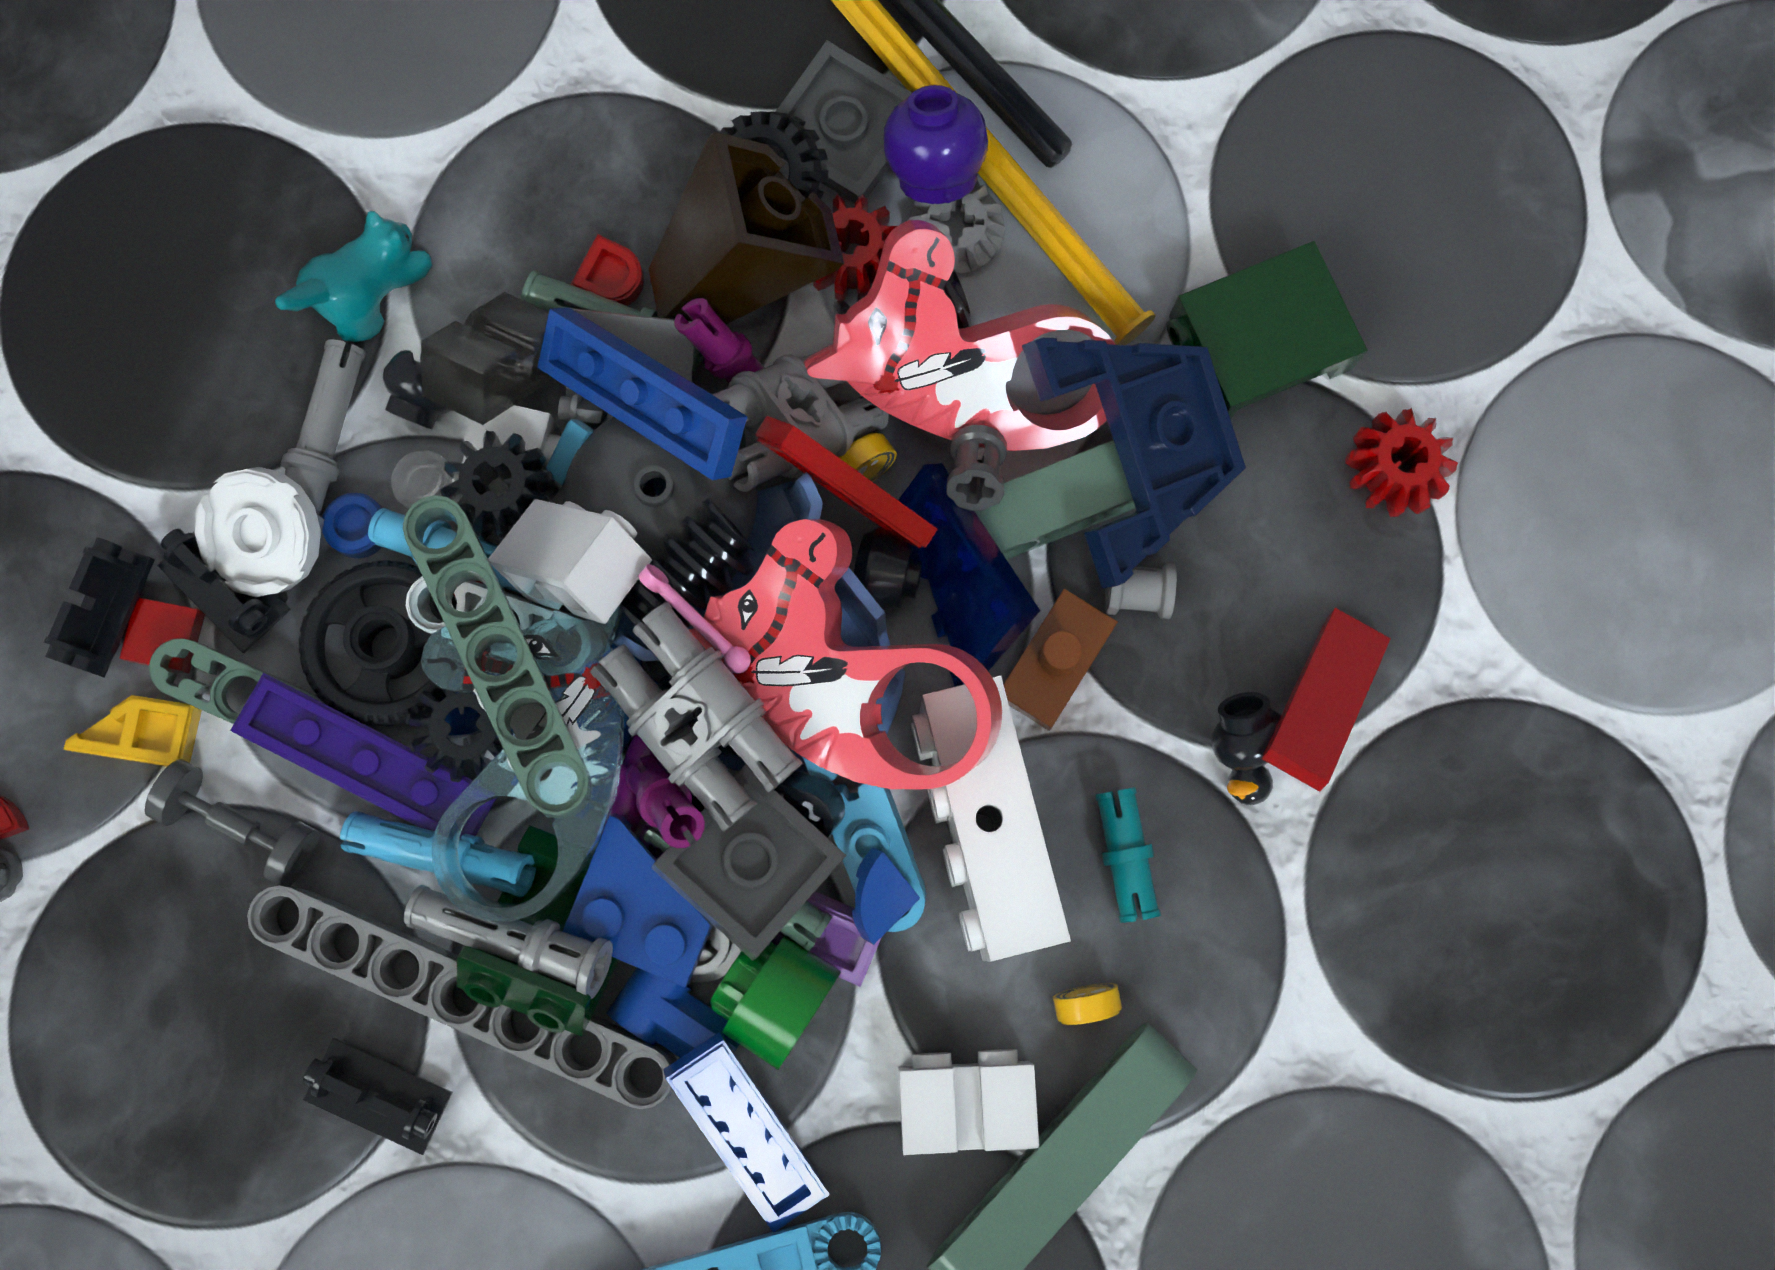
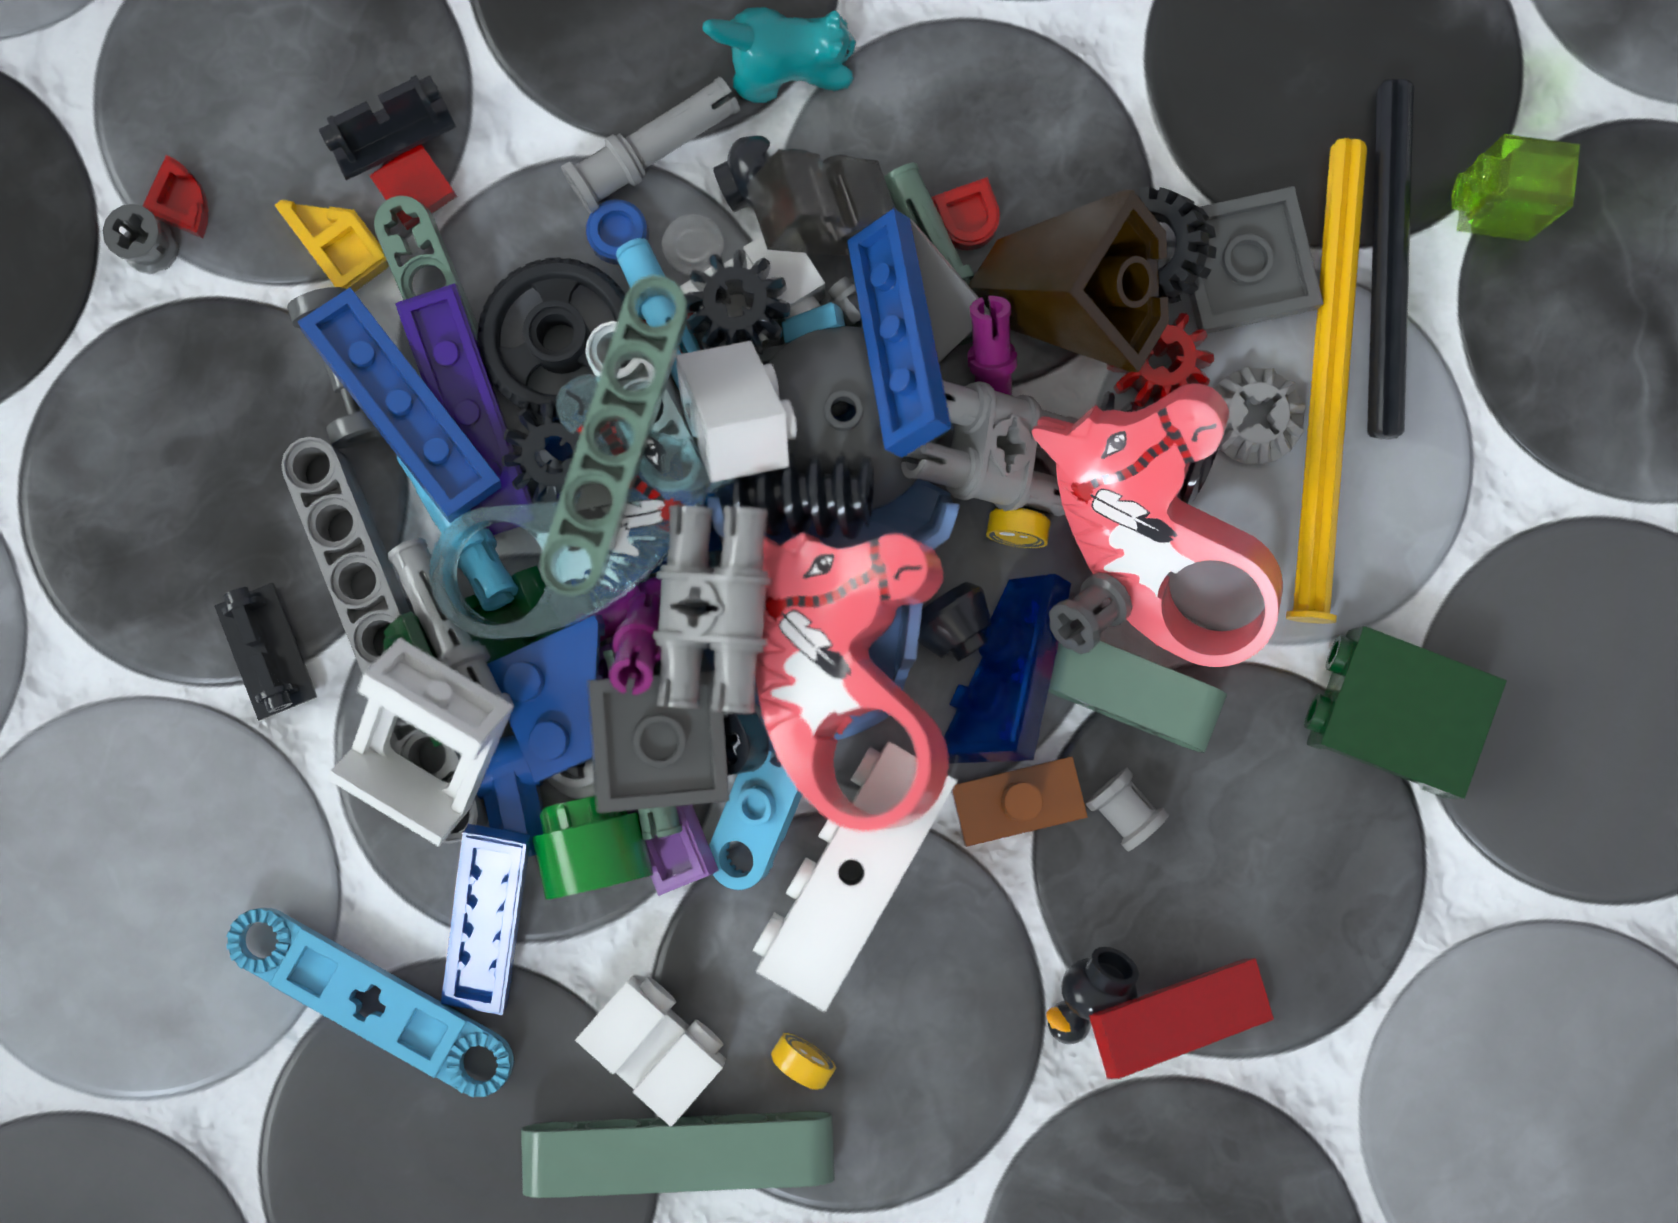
camera: 45 degrees right, 5 degrees up
(235, 614) = (485, 188): black hinge -> none
(258, 531) = (543, 176): white tile -> none
(305, 803) = (400, 405): none -> blue plate
(554, 989) = (445, 707): none -> white window
(735, 658) = (775, 486): bright pink hinge -> none
(844, 482) = (981, 536): red tile -> none
(880, 896) = (728, 850): blue tile -> none
(935, 144) = (1294, 344): dark purple piece -> none
(1127, 855) = (932, 987): teal pin -> none
(1166, 430) = (1254, 717): dark blue wing -> none
(1417, 448) = (1433, 902): red gear -> none

